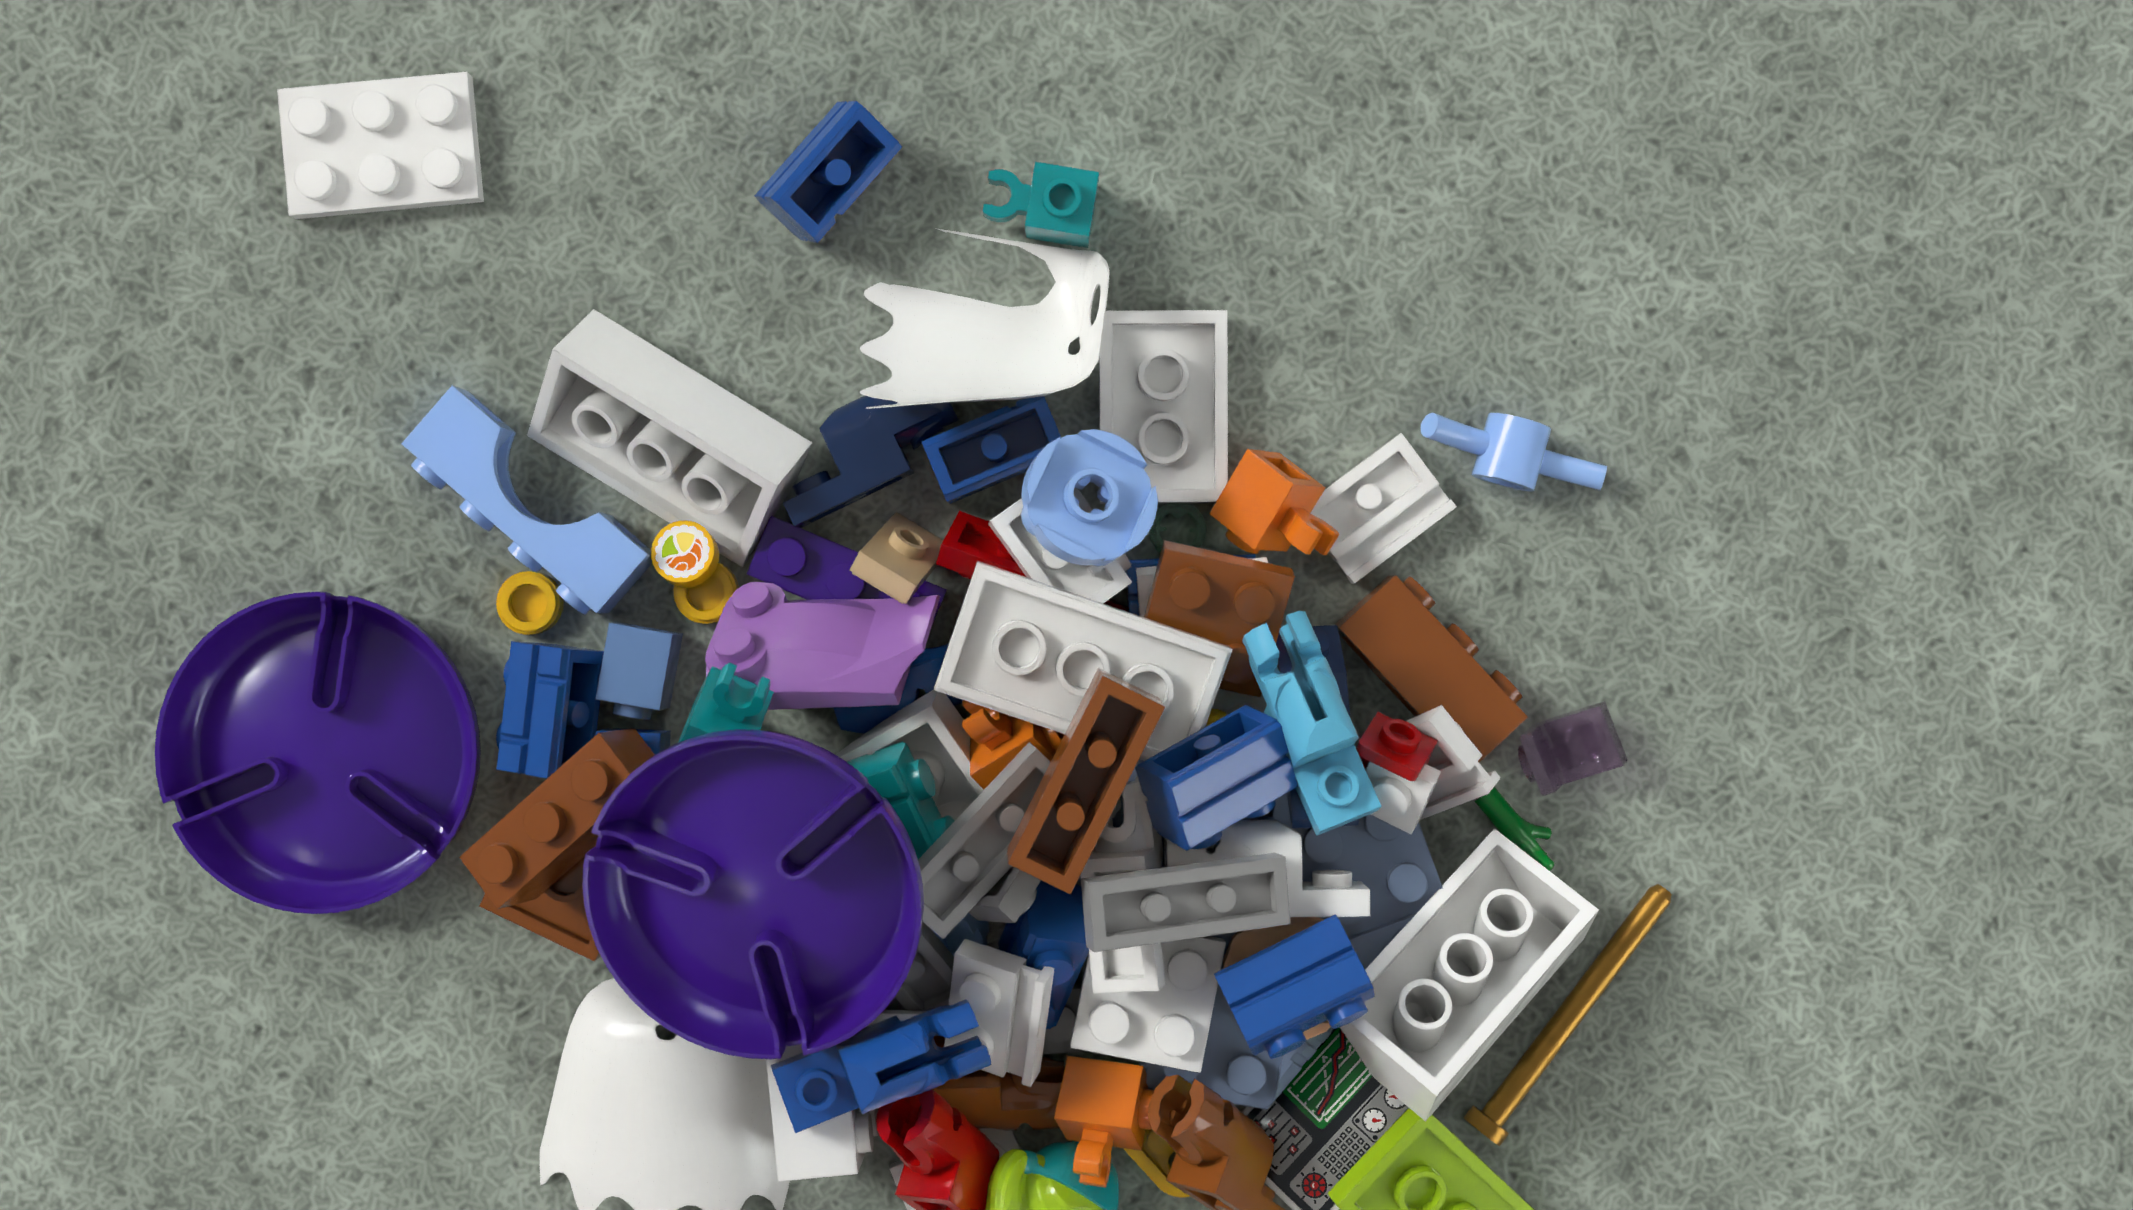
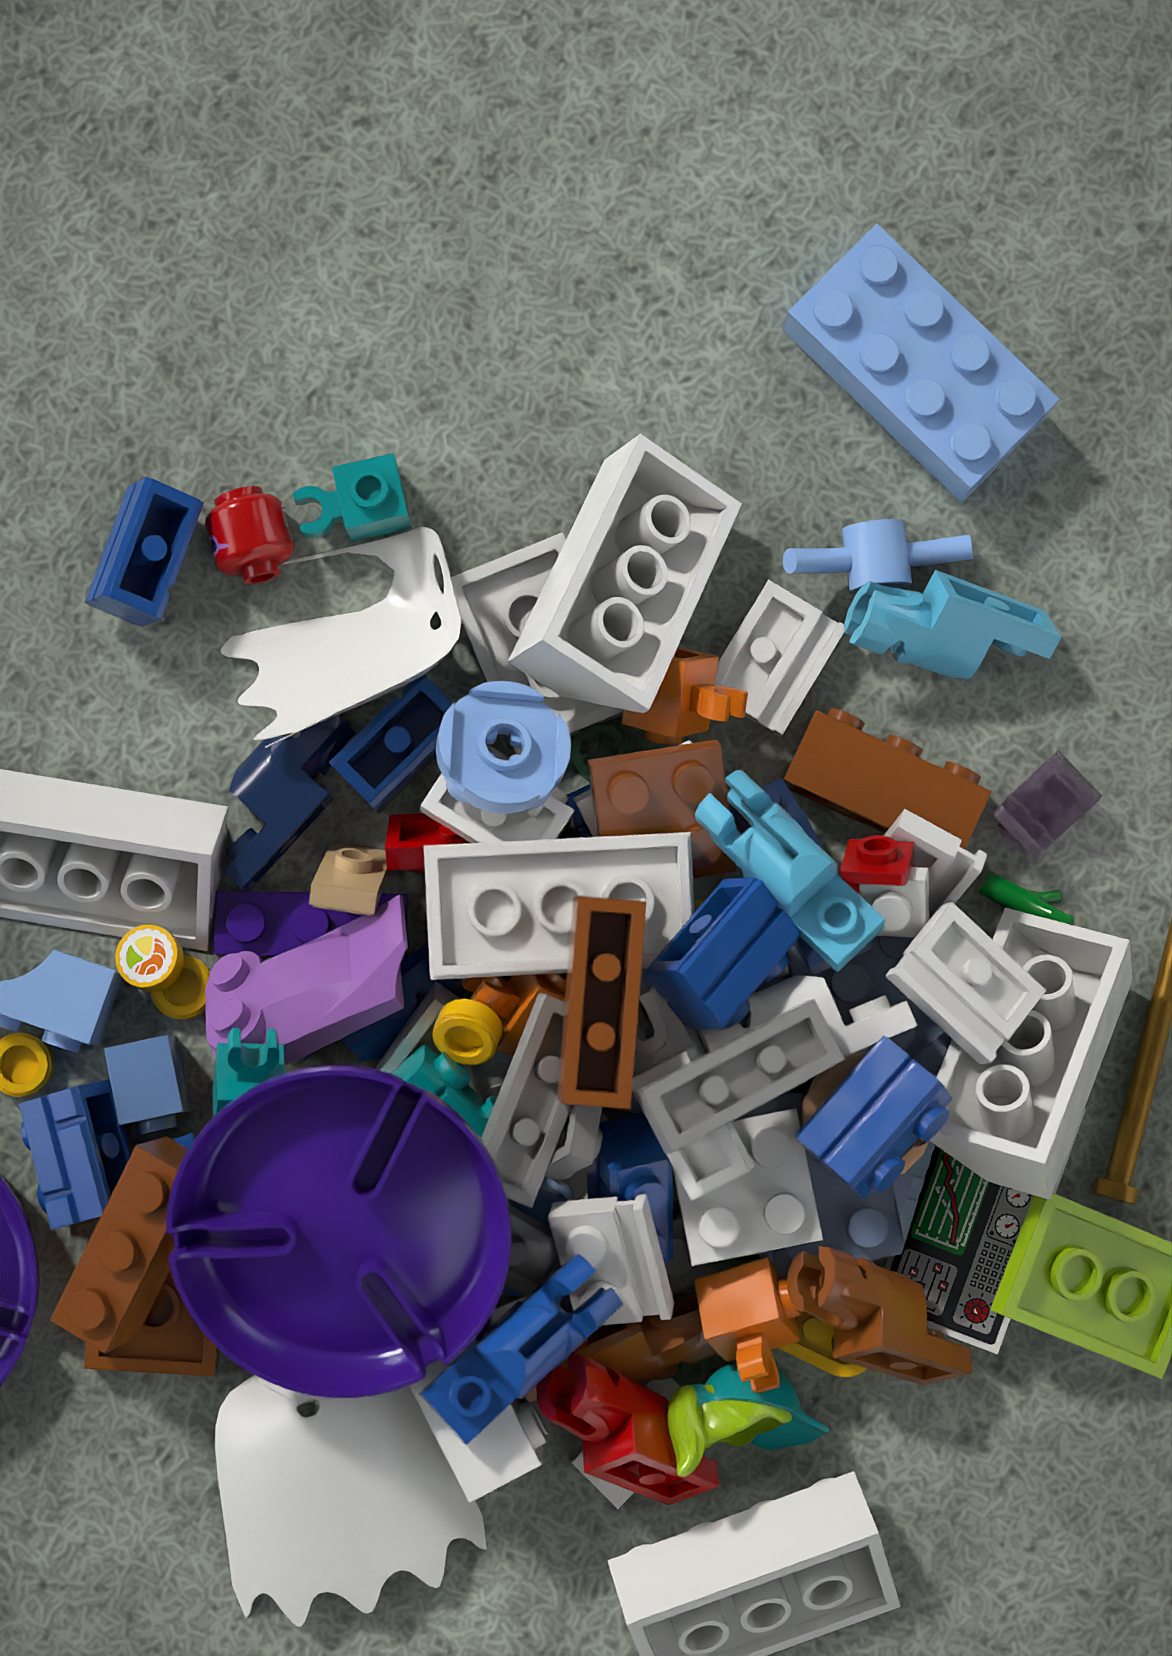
camera: 20 degrees left, 5 degrees down
(933, 193) = (249, 534): none -> red head
(949, 749) = (467, 1031): none -> yellow tile
(1269, 381) = (626, 580): none -> white slope
(1431, 892) = (965, 983): none -> white plate
(1550, 543) = (947, 625): none -> medium azure plate
(1628, 284) = (919, 362): none -> light blue brick

